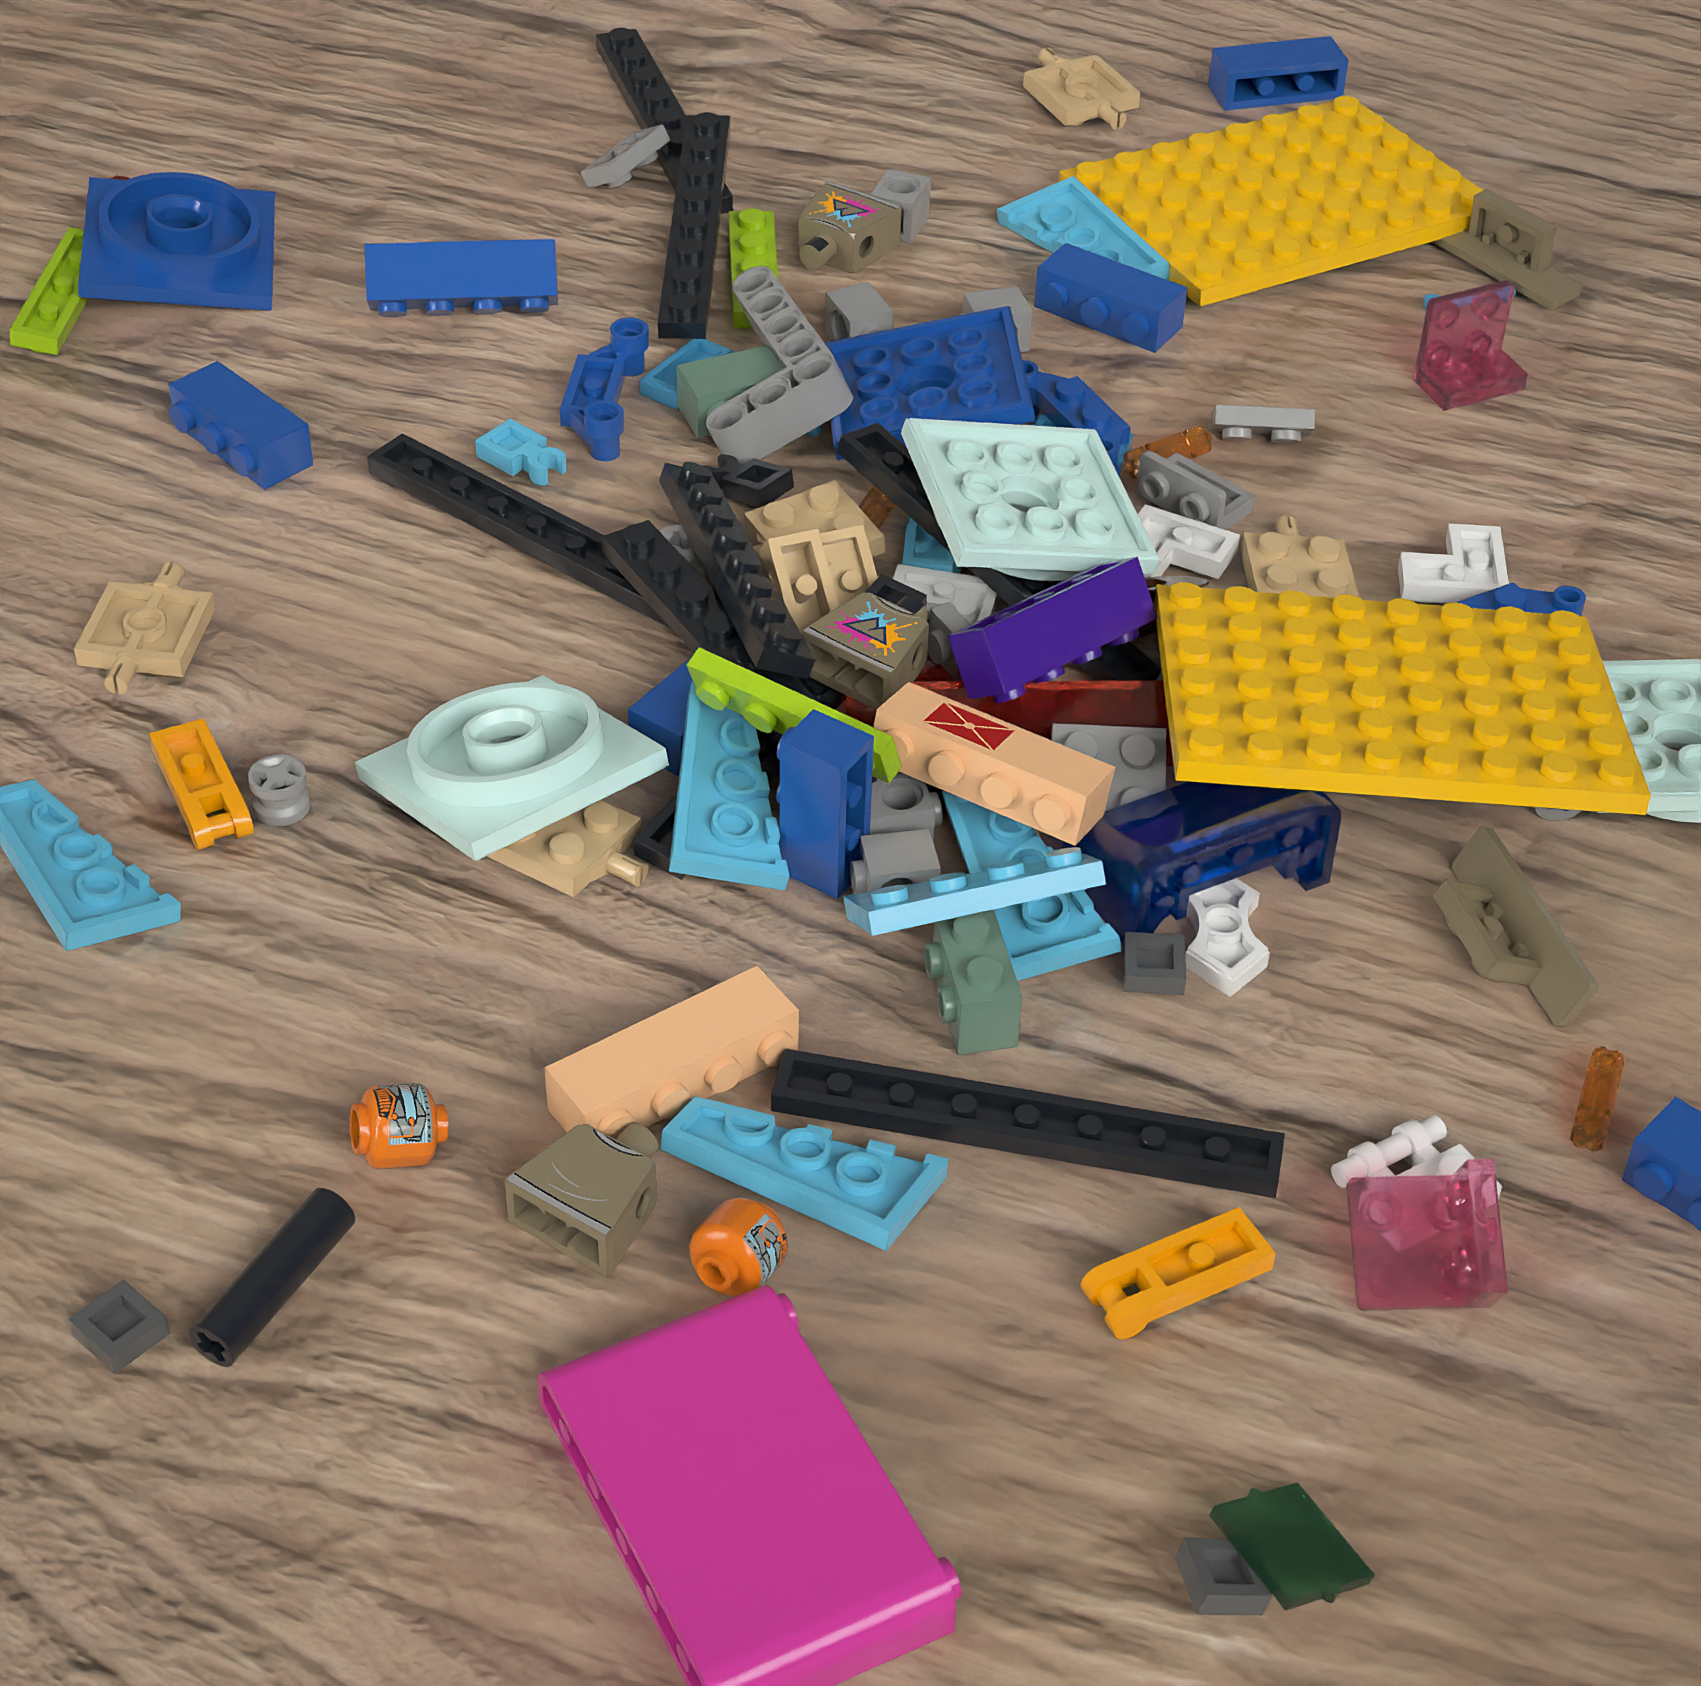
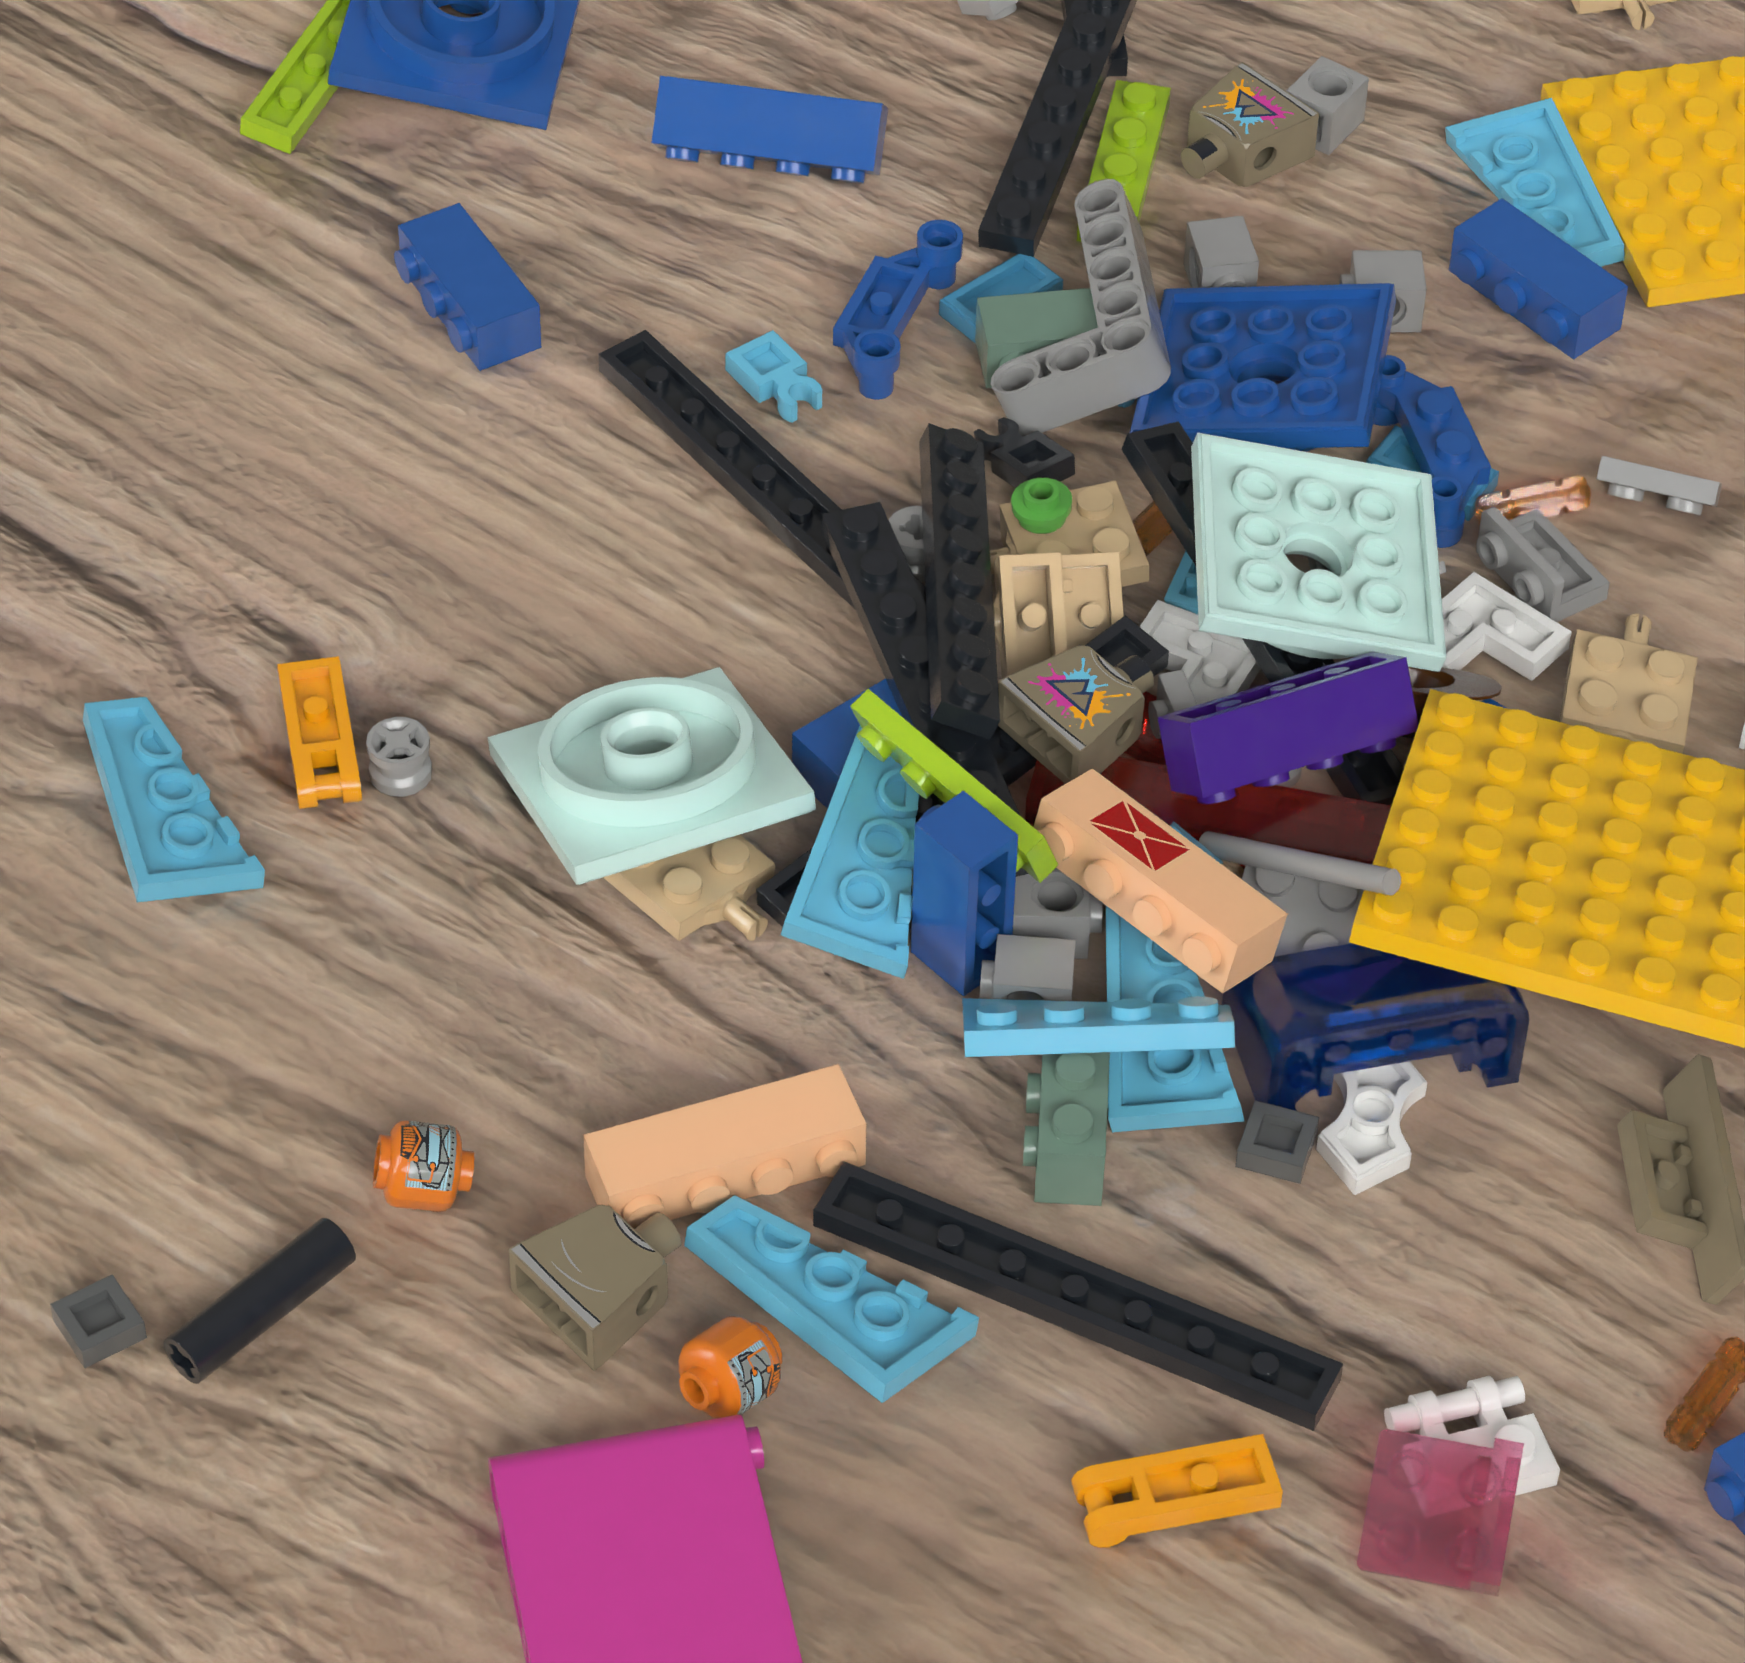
camera: 15 degrees right, 5 degrees up
(145, 628) = (304, 531): tan plate -> none
(783, 503) = (1041, 505): none -> bright green plate
(1122, 725) = (1302, 863): none -> light grey bar

